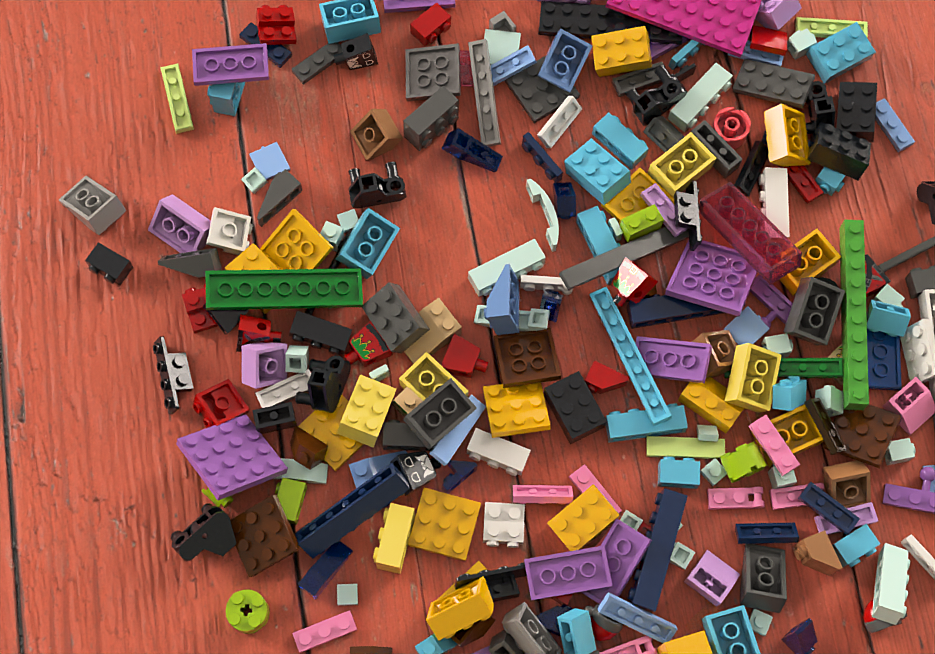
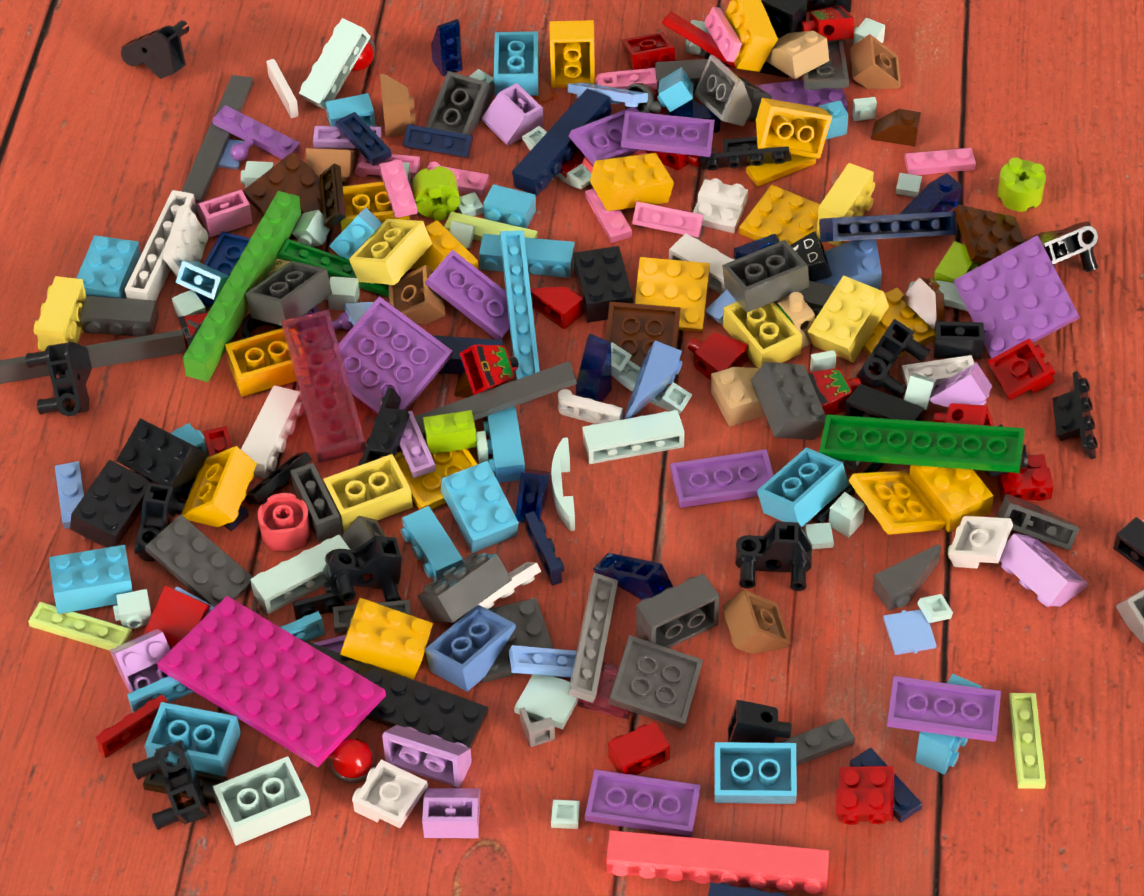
camera: 160 degrees left, 20 degrees down
(430, 249) = (720, 478): none -> medium lavender plate
(583, 101) = (464, 587): none -> brick

